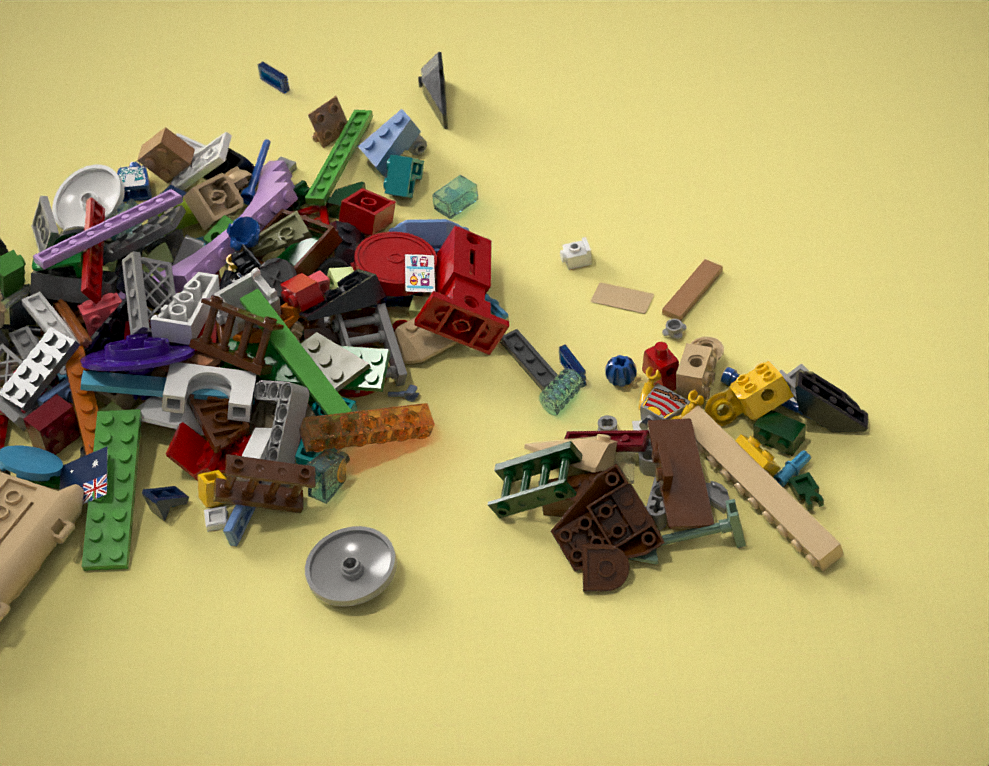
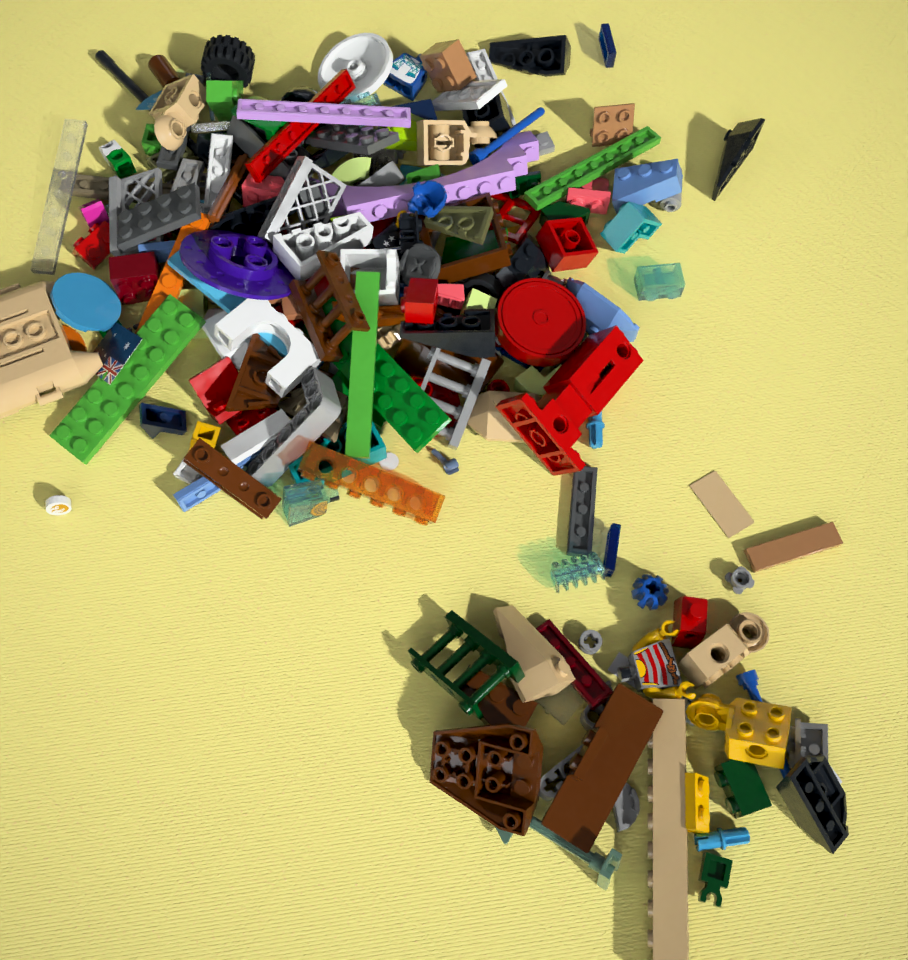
camera: 30 degrees right, 20 degrees up
(44, 225) = (294, 79): light grey tile -> none
(136, 599) = (58, 505): none -> white tile
(224, 113) = (535, 55): none -> black wedge
(334, 361) = (392, 394): wing -> none
(351, 566) = (242, 620): light grey dish -> none
(356, 172) = (591, 195): none -> coral bracket
(419, 273) = (548, 351): sticker -> none
(576, 254) = (716, 425): white brick -> none
(604, 567) = (452, 809): reddish brown tile -> none

